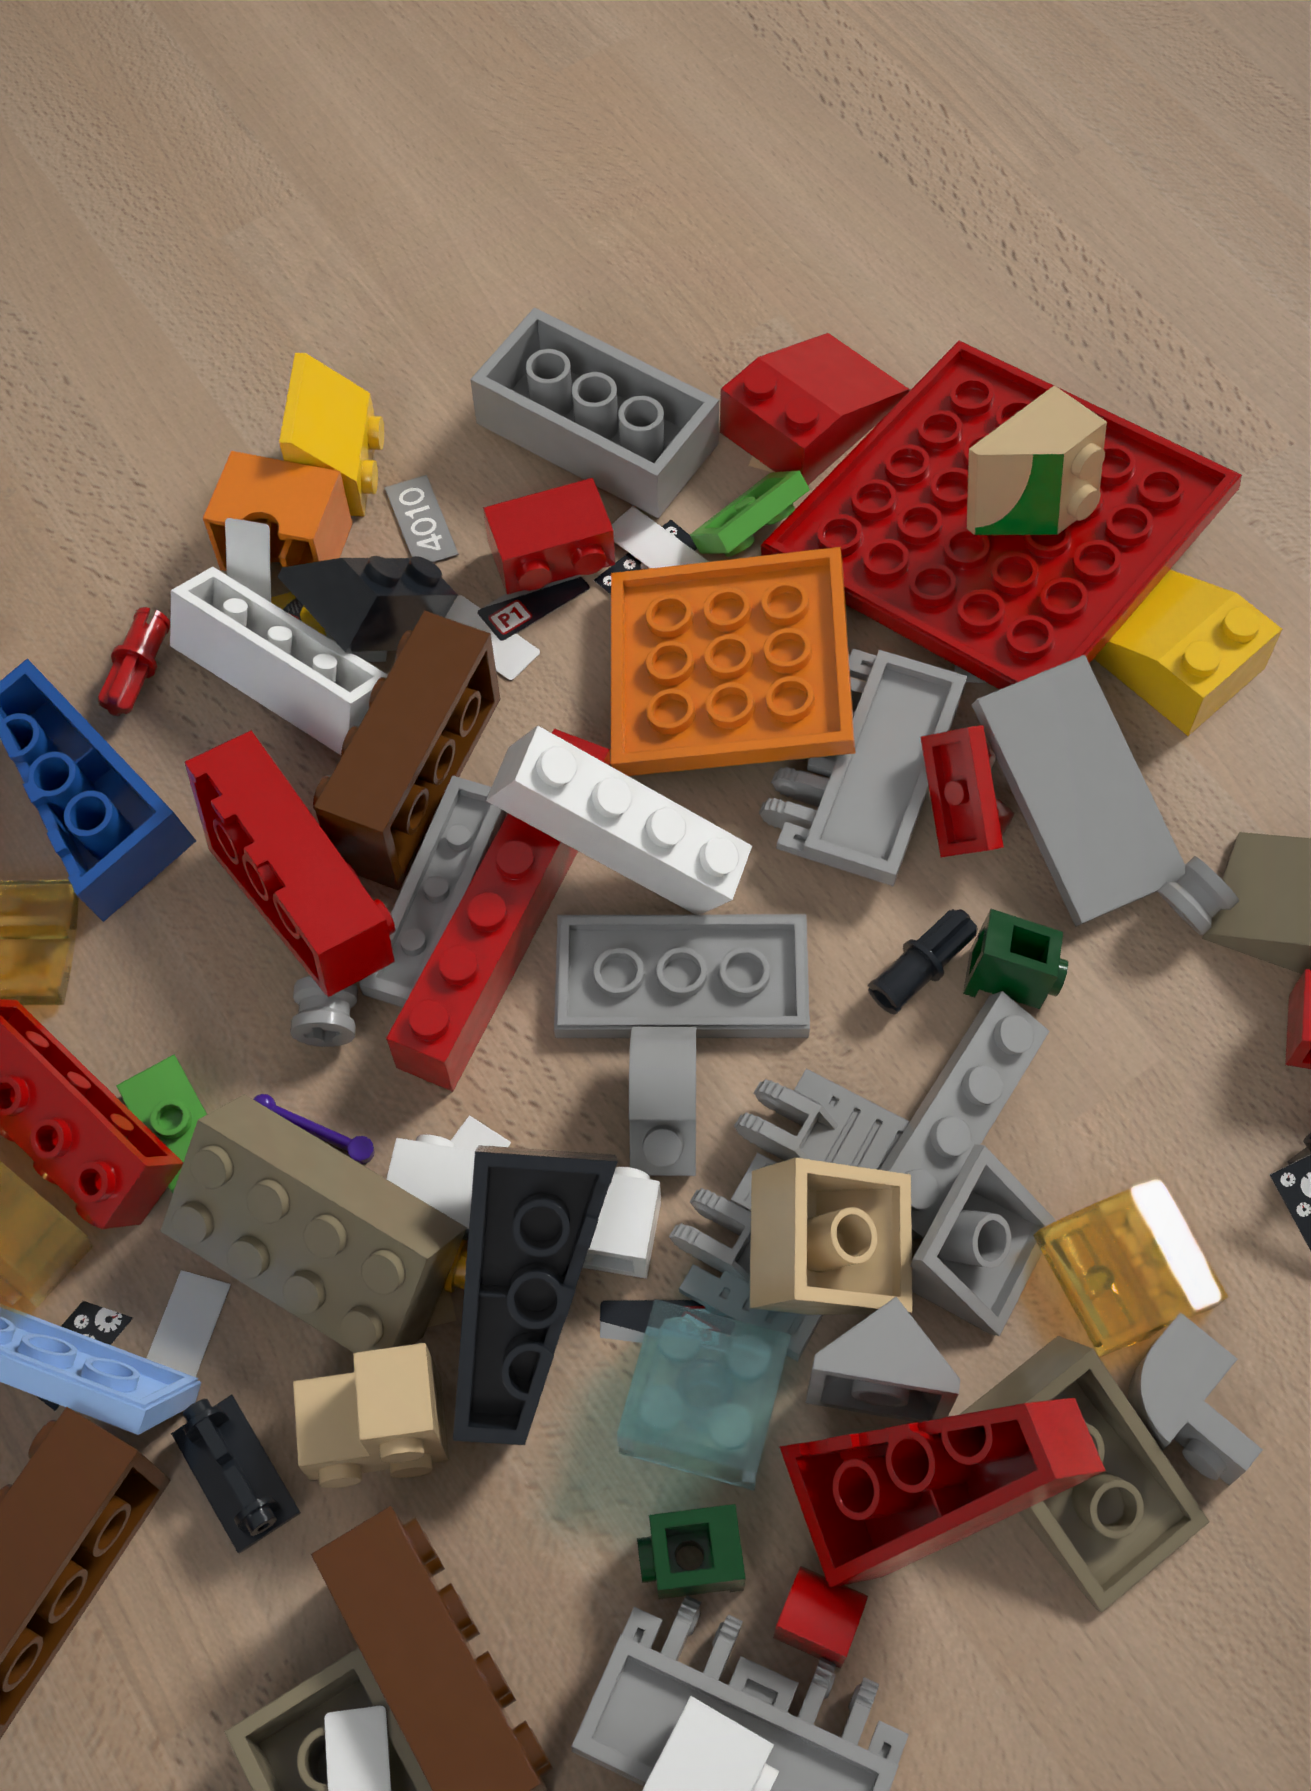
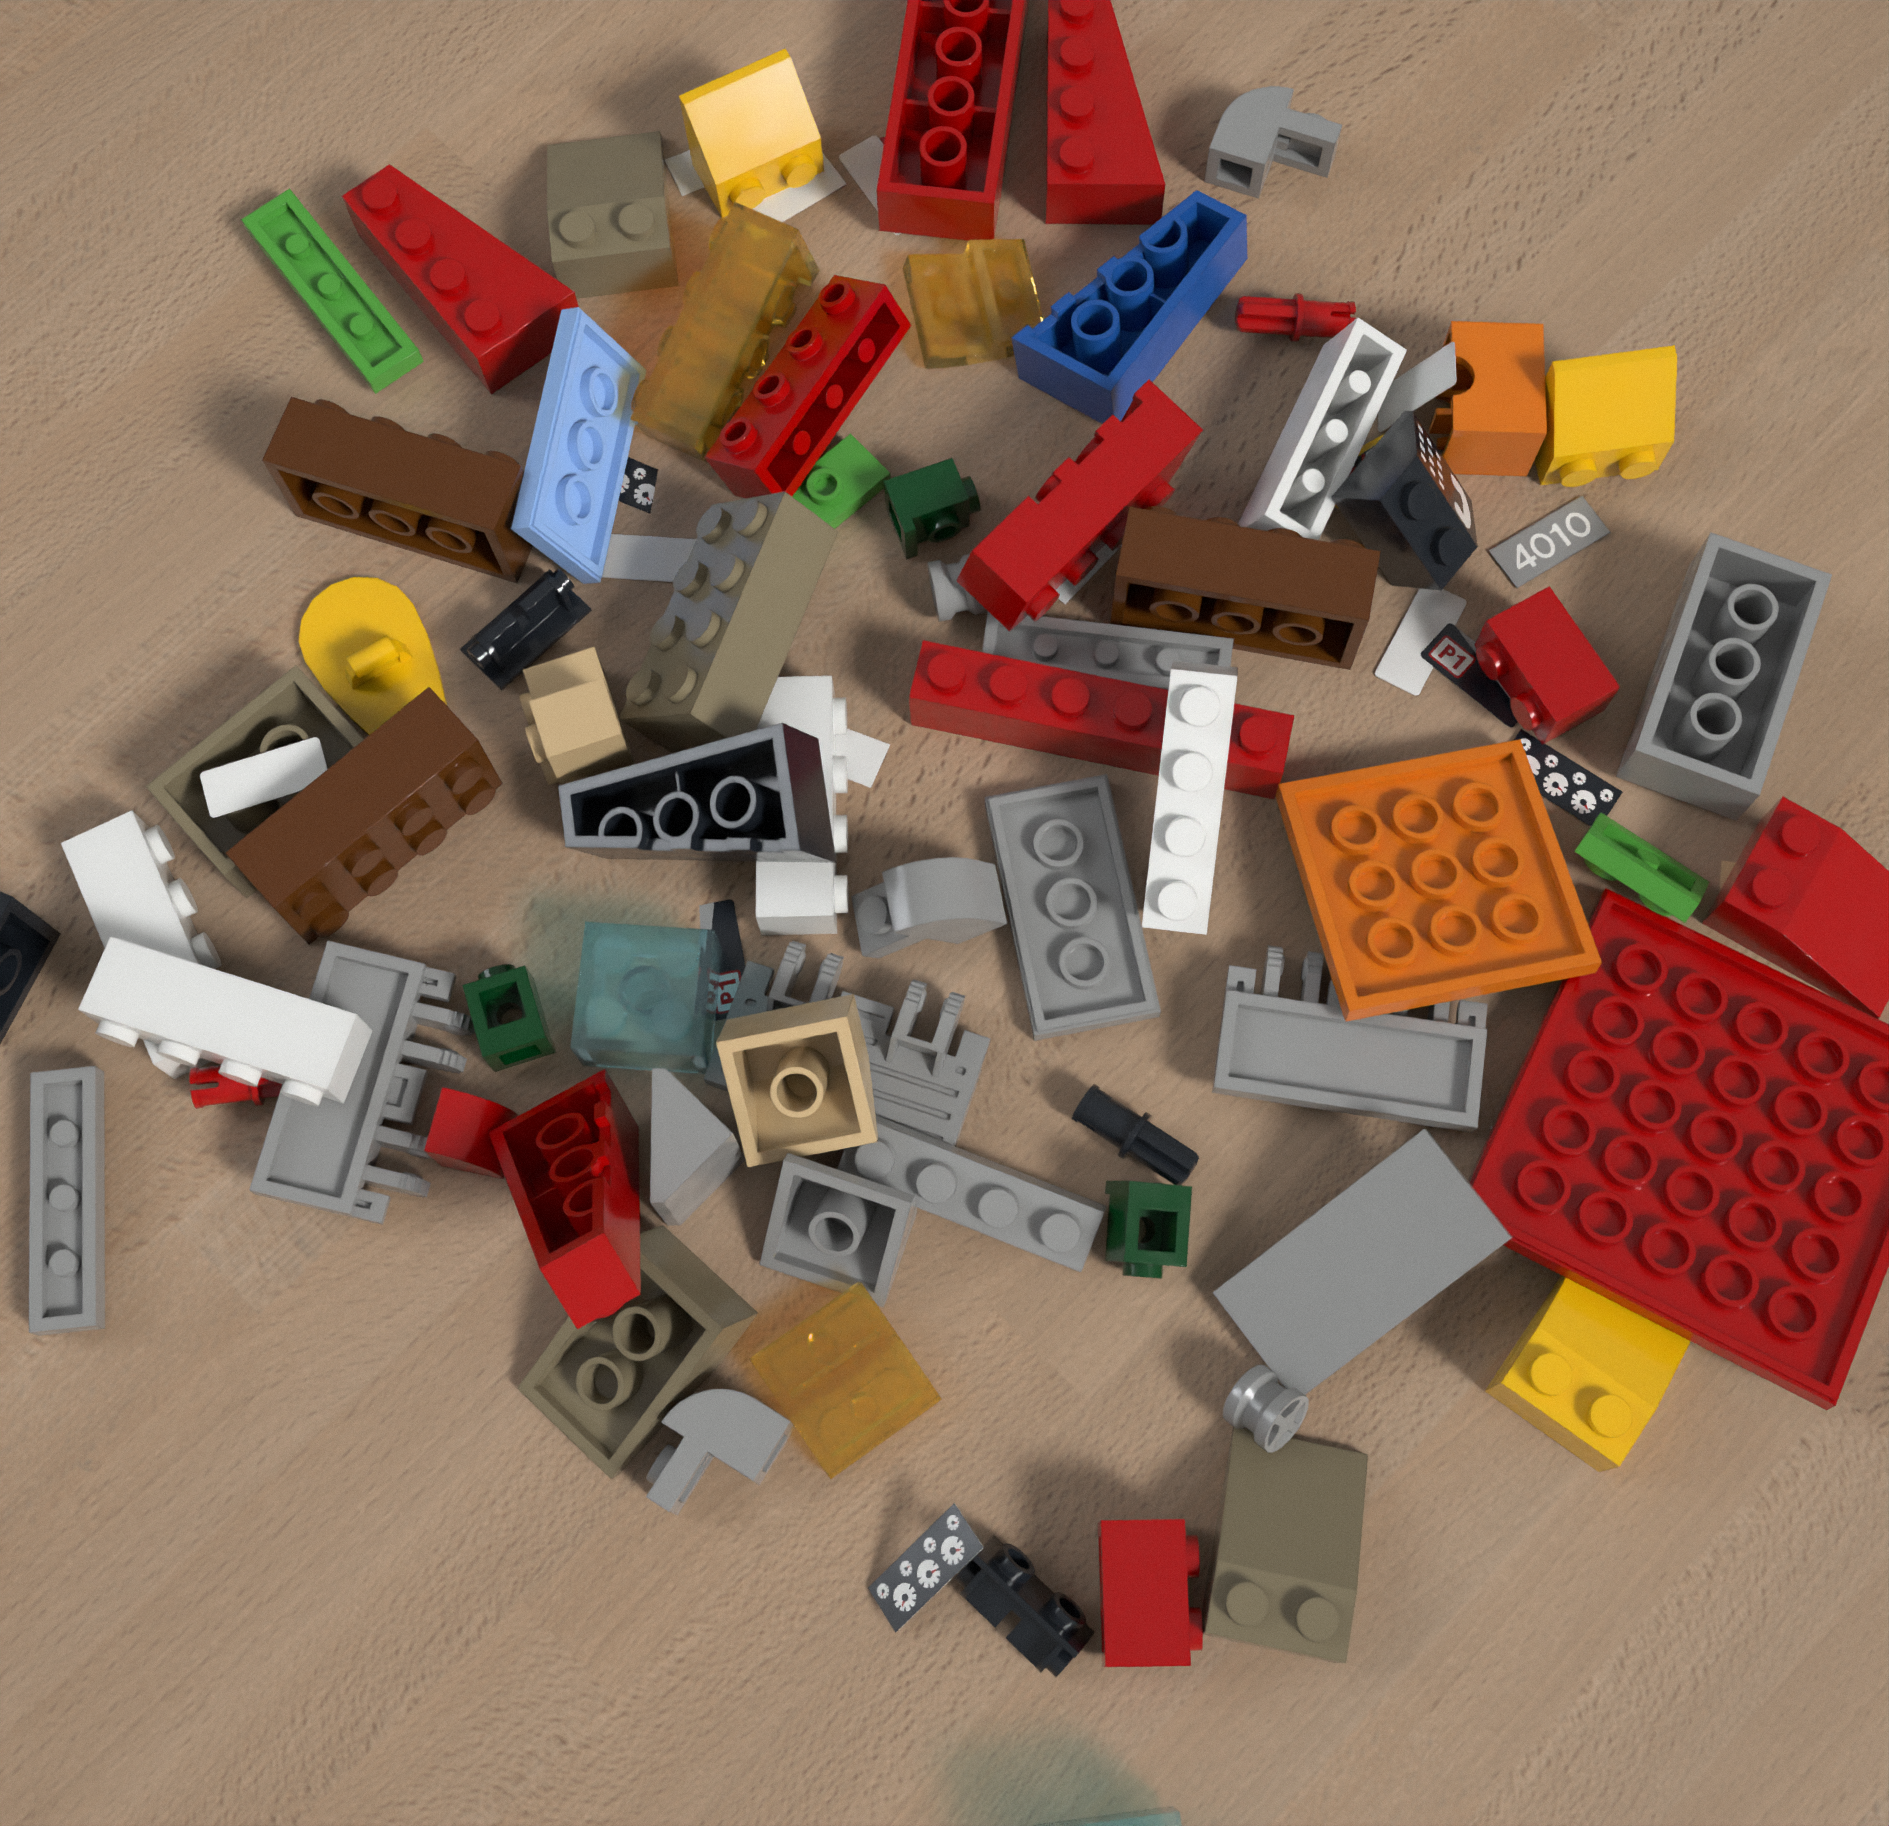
camera: 80 degrees right, 10 degrees up
(218, 1659) = (368, 649): none -> yellow shield
(226, 1021) = (930, 504): none -> dark green brick
(358, 1148) = (835, 656): dark purple hinge -> none
(651, 542) = (1580, 781): white sticker -> none
(963, 792) = (1309, 1150): red tile -> none
(1037, 469) = (1747, 1151): tan slope -> none

